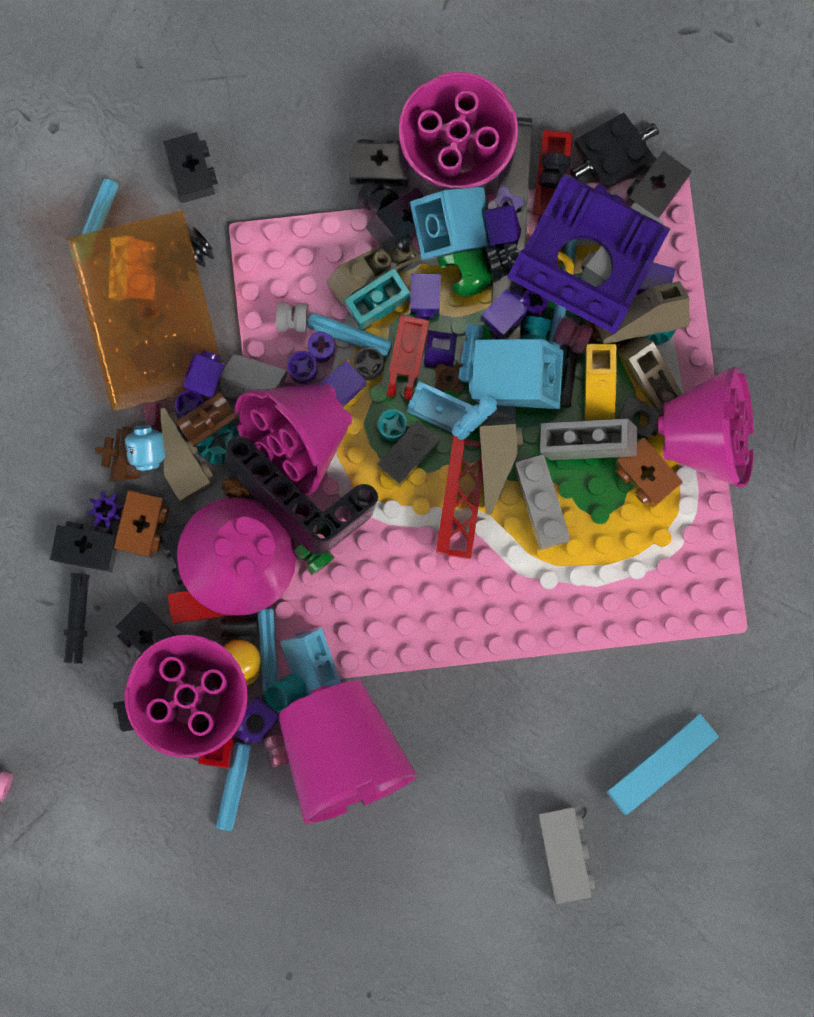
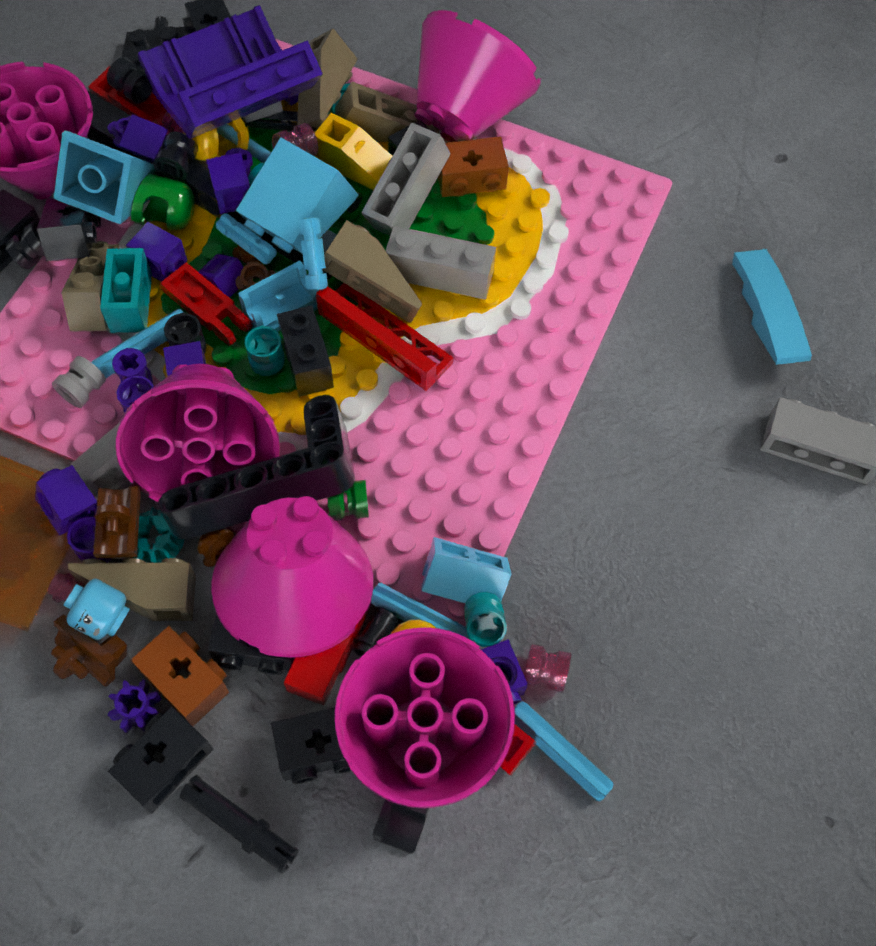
camera: 60 degrees left, 20 degrees down
(341, 751) = (593, 583): dark pink cone -> none

